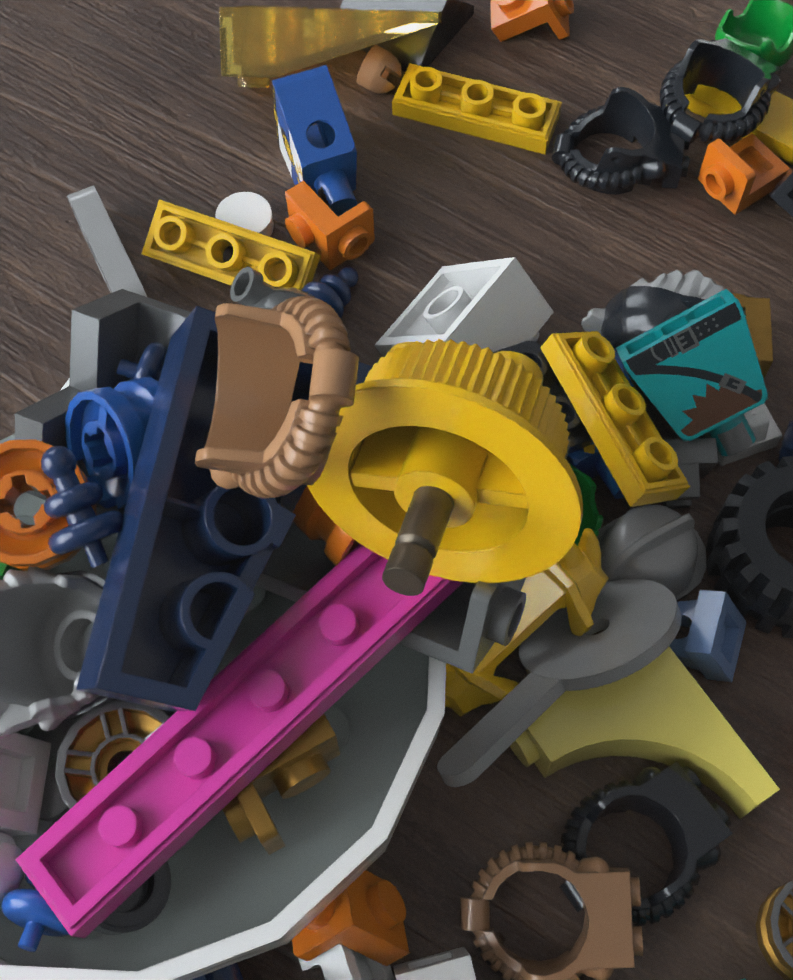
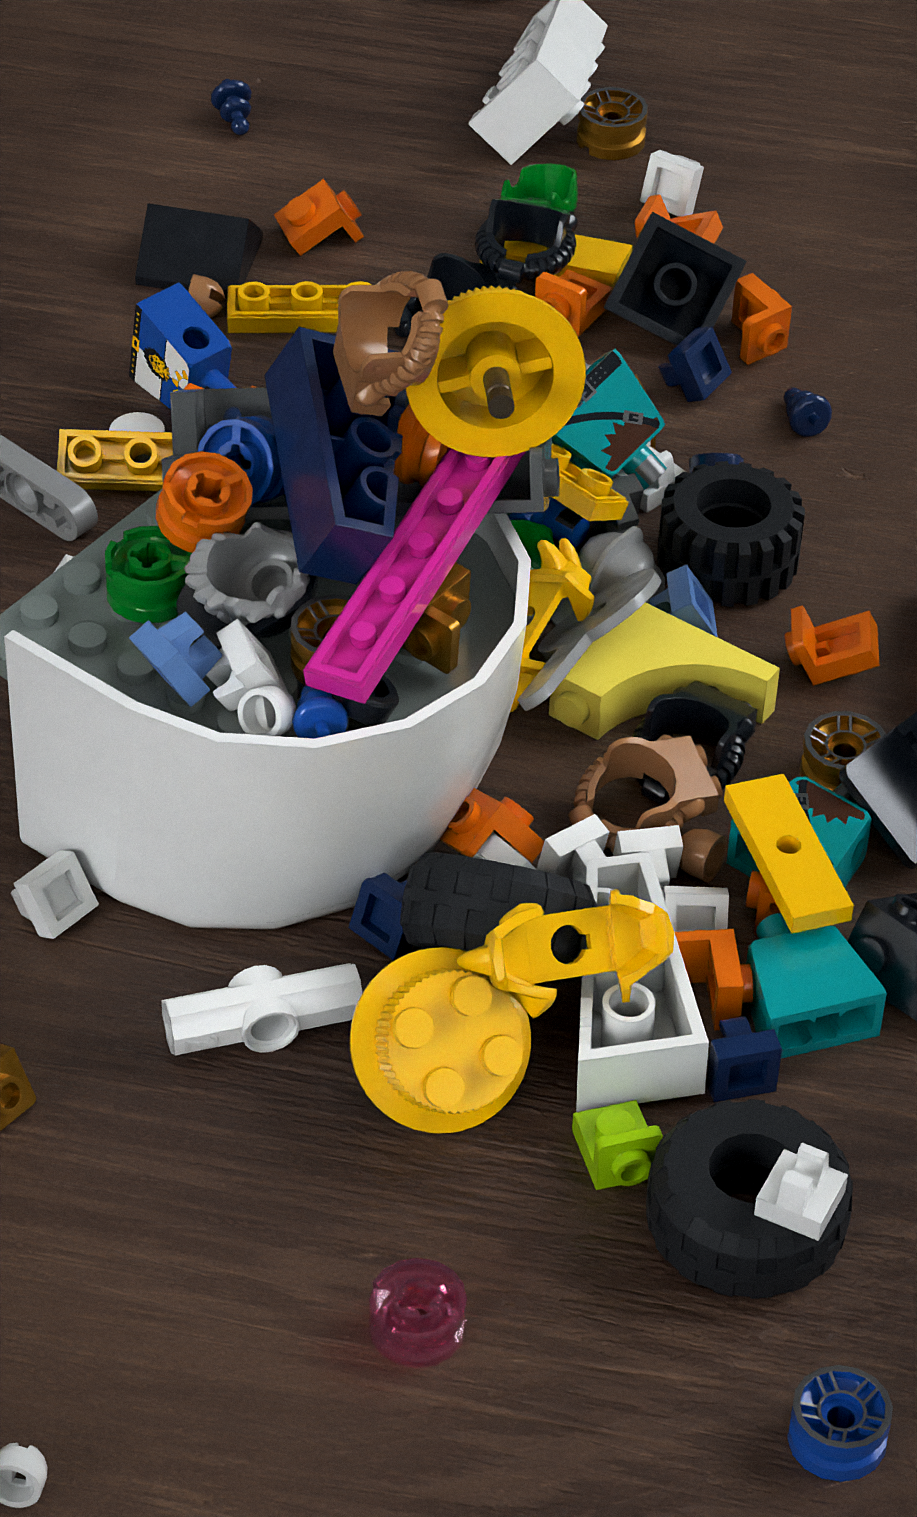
camera: 25 degrees left, 20 degrees down
(75, 503) = (249, 472): dark blue hair -> none
(280, 39) = (105, 286): clear yellow wedge -> none

